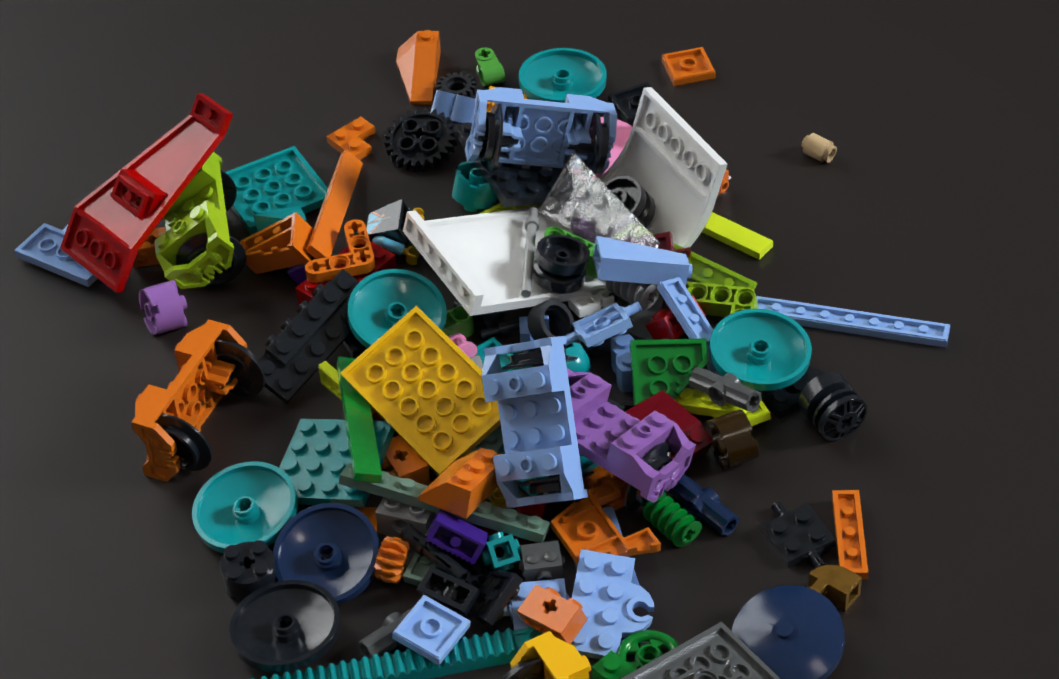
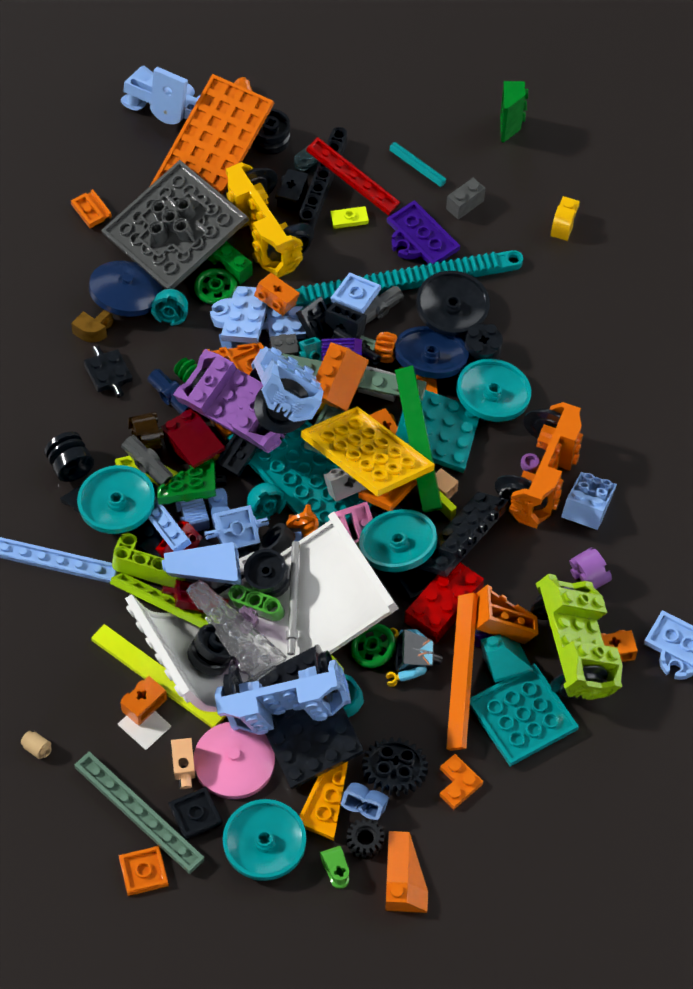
camera: 175 degrees right, 15 degrees up
(127, 207) = (618, 638): red wing -> none
(136, 376) = (588, 500): none -> light blue slope
(215, 438) = (530, 462): none -> medium lavender tile
(328, 401) = (447, 484): none -> light nougat brick
(352, 260) = (440, 592): orange beam -> none
(506, 332) = (307, 521): none -> orange hair
(700, 103) = (139, 812): none -> sand green plate
(712, 606) = (170, 307): none -> teal cylinder
(849, 531) = (73, 368): orange plate -> none

